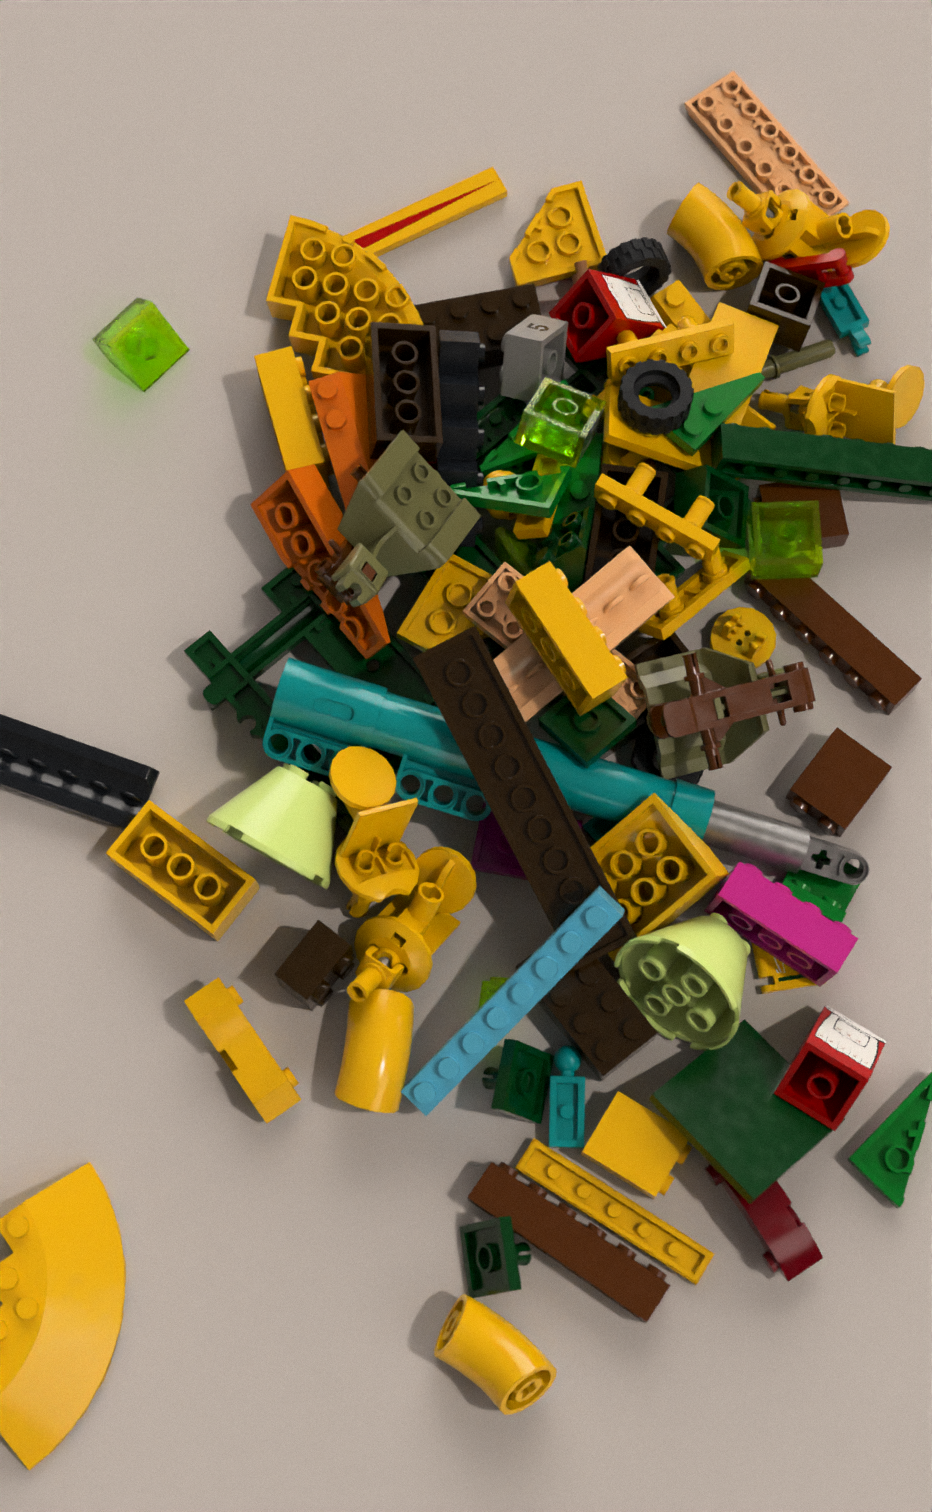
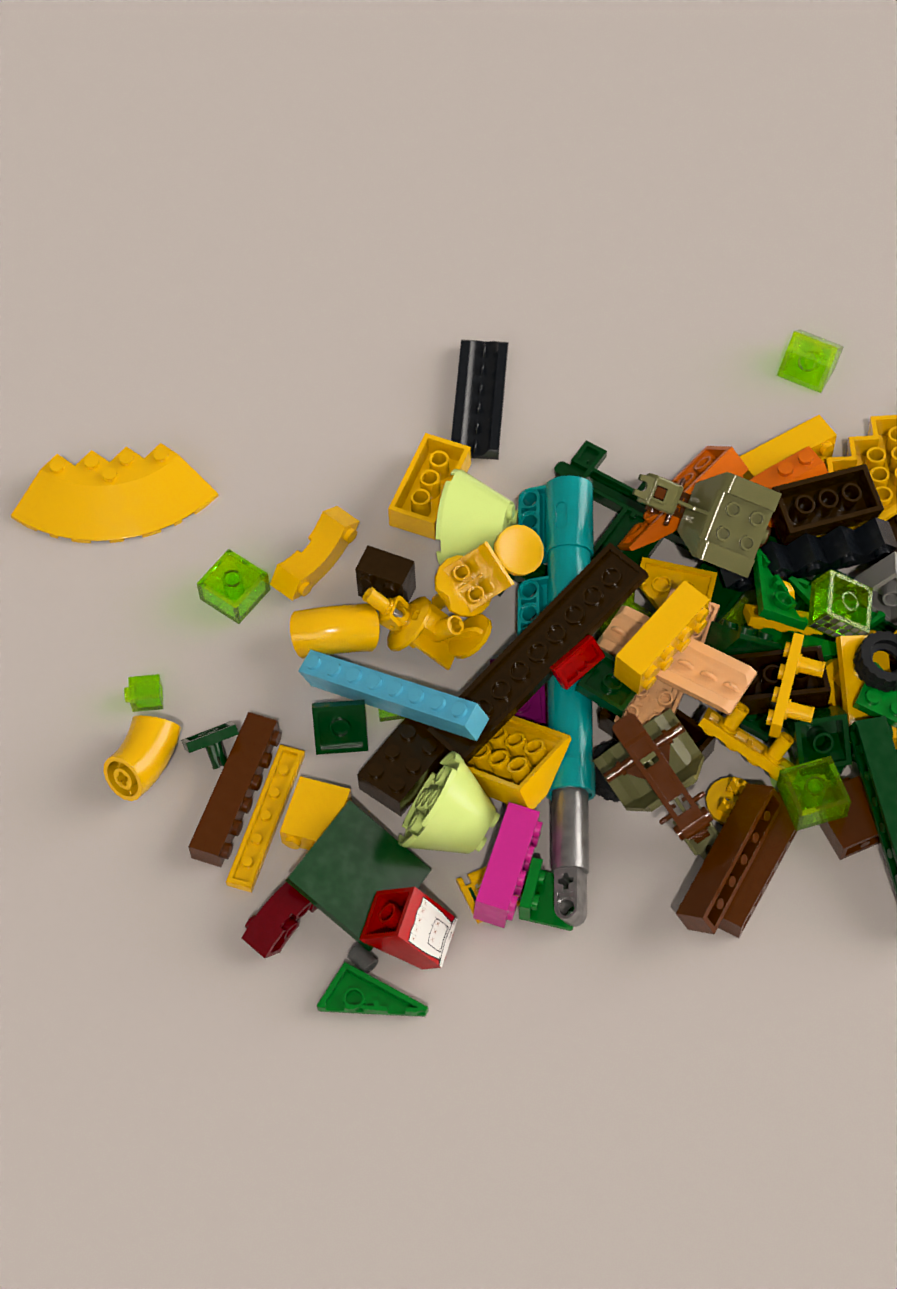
camera: 75 degrees right, 15 degrees down
(260, 1173) = (233, 586): none -> clear neon green brick
(388, 1333) = (144, 693): none -> clear neon green brick
(558, 752) = (577, 662): none -> red plate
(567, 1101) = (335, 764): teal plate -> none
(837, 662) = (730, 858): none -> reddish brown brick
(837, 783) = (636, 891): reddish brown brick -> none
(846, 1135) = (362, 958): none -> dark grey hinge

